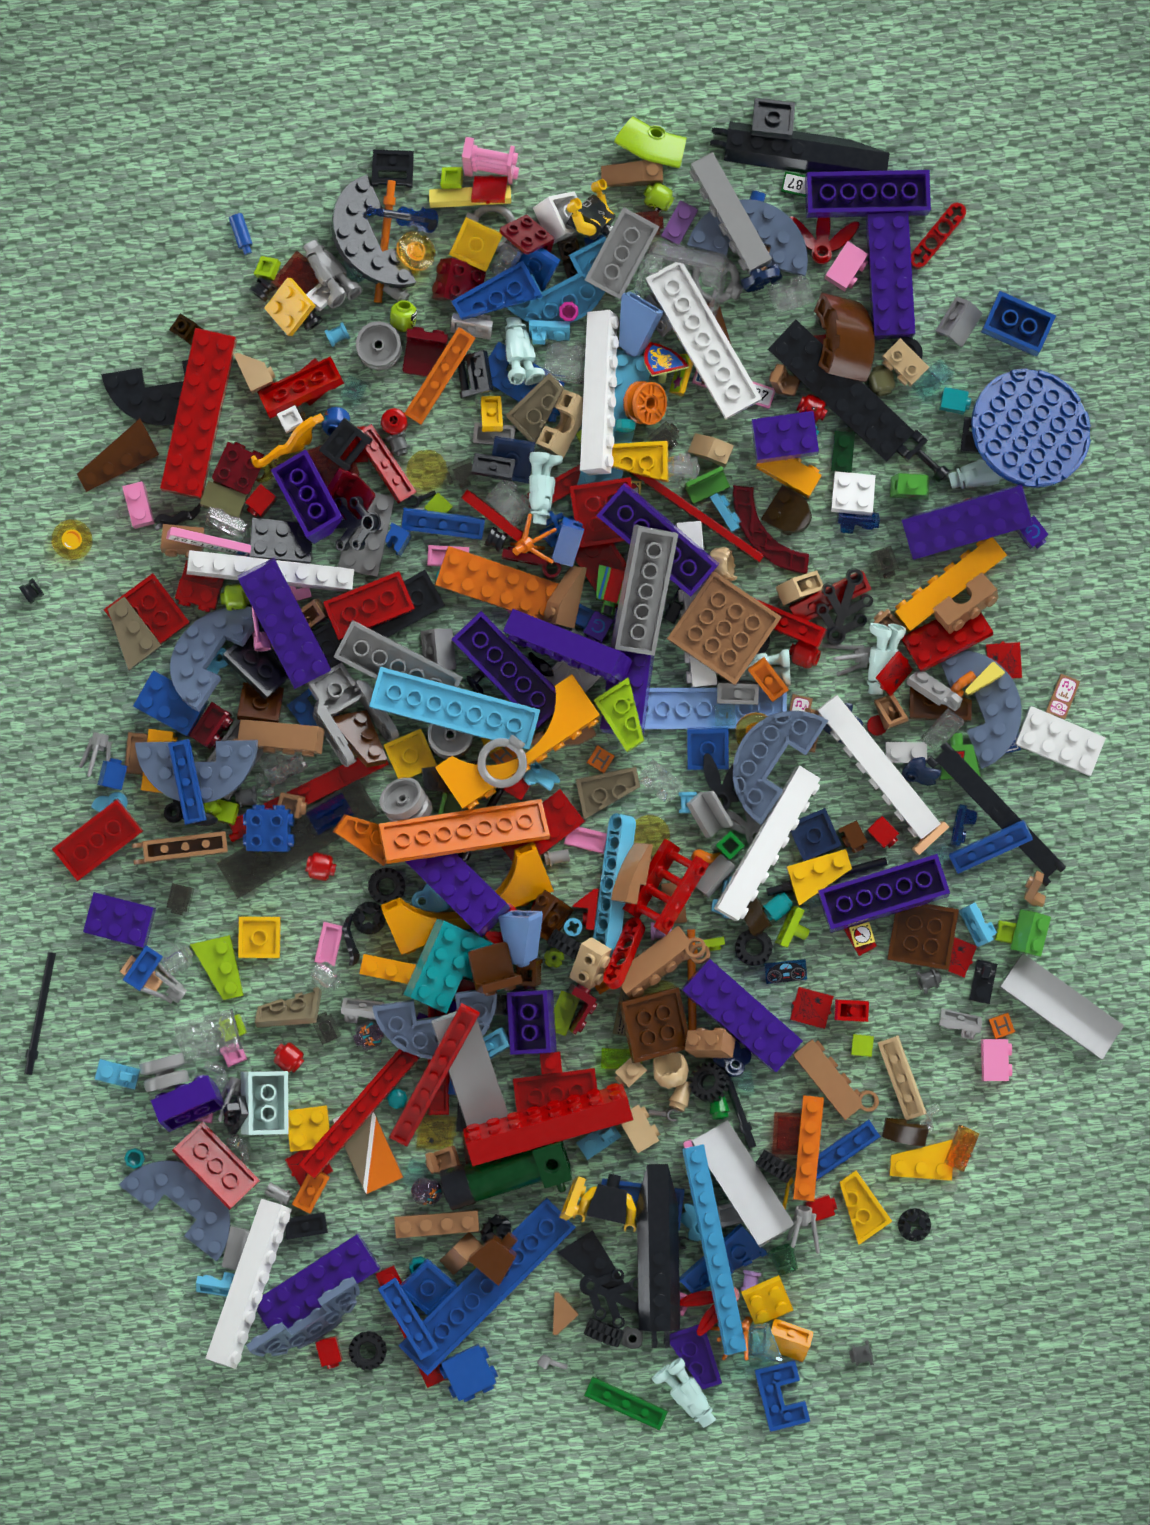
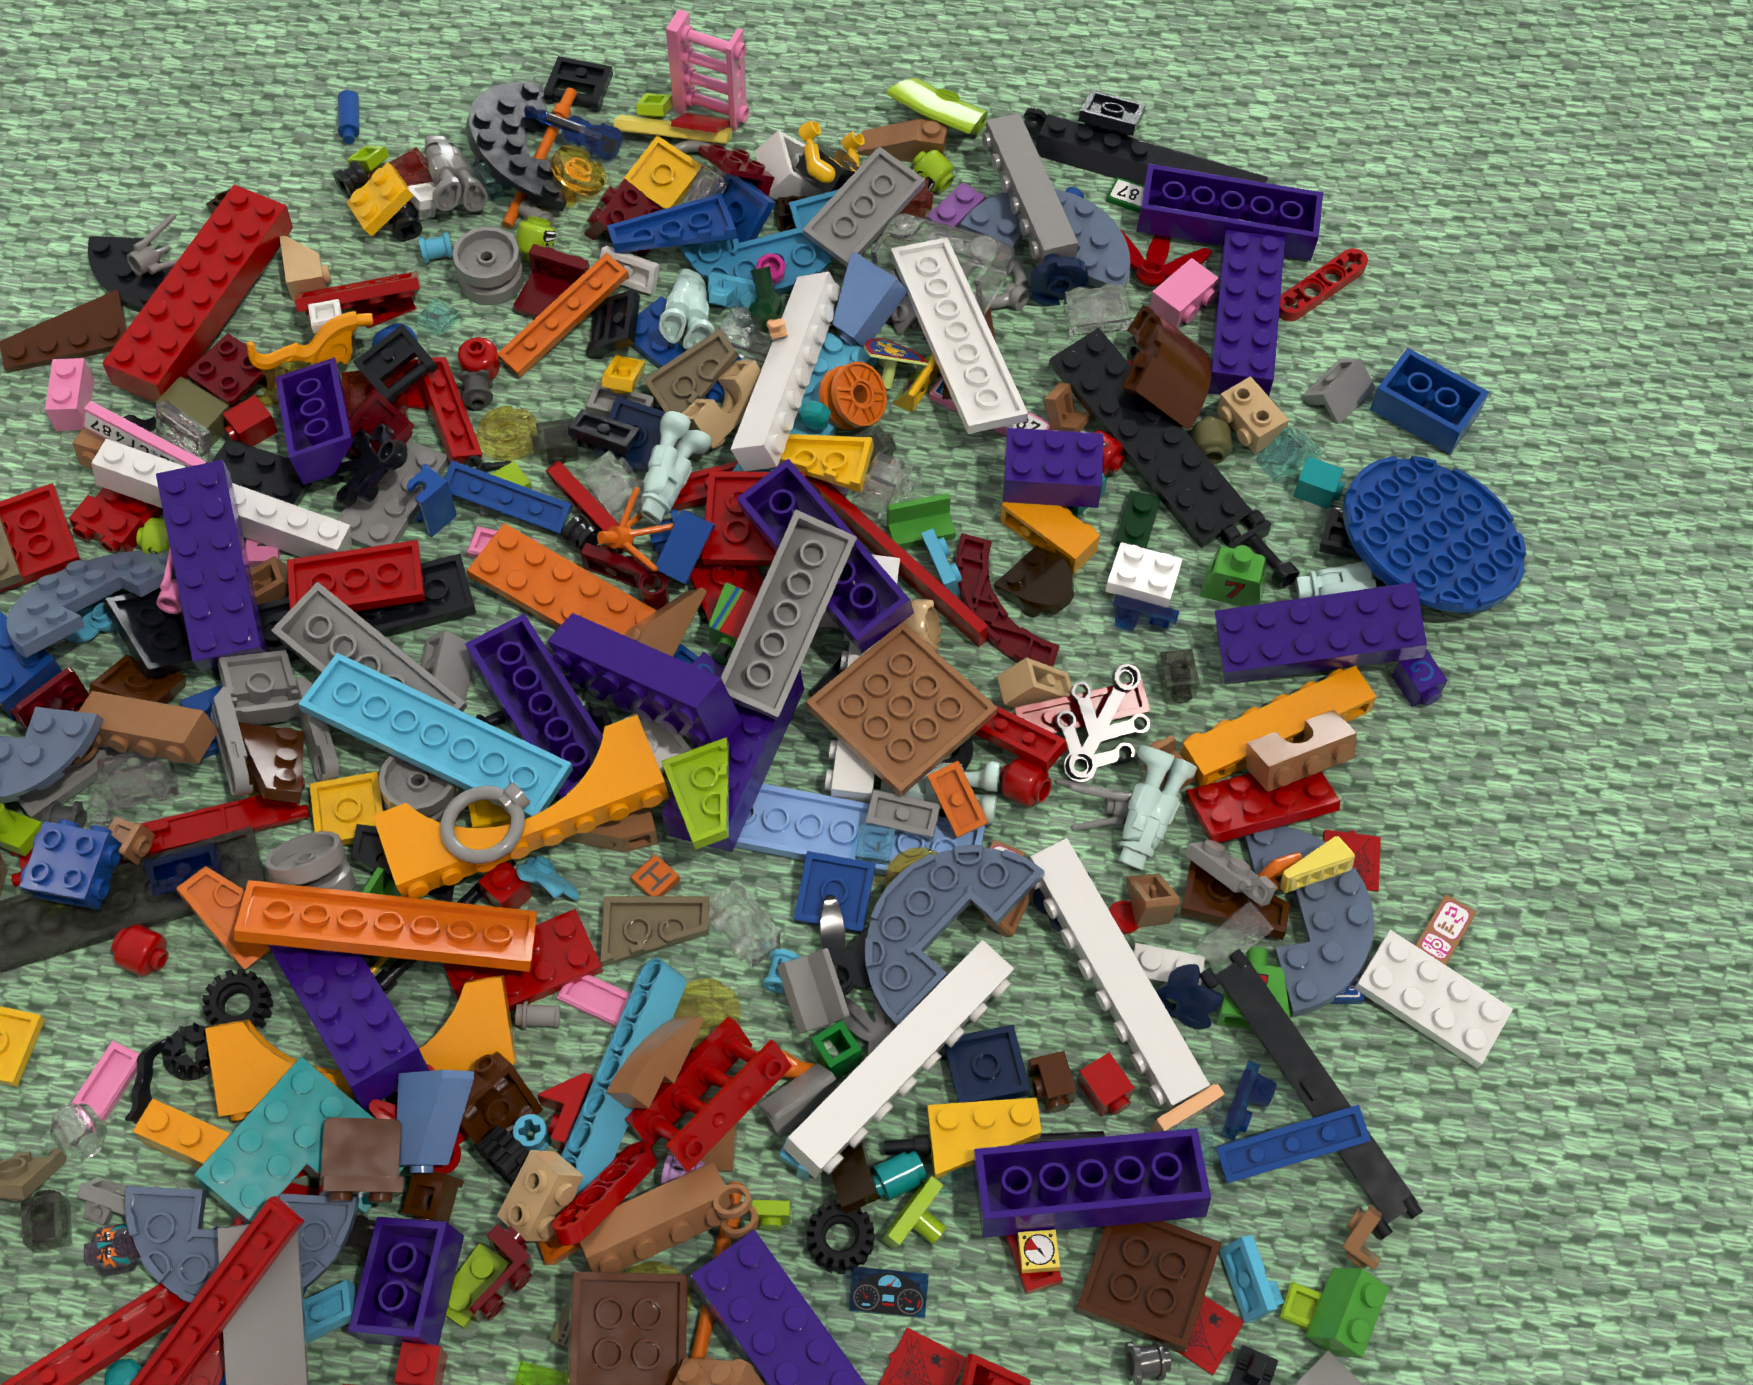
camera: 10 degrees right, 25 degrees down
(151, 391) = (146, 258): none -> light grey plant
(433, 901) = (306, 1041): medium azure plate -> none
(553, 963) = (487, 1192): lime plate -> none
(573, 346) = (767, 306): none -> dark green arm
(711, 449) = (941, 476): tan slope -> none
(894, 673) = (1166, 835): red piece -> none

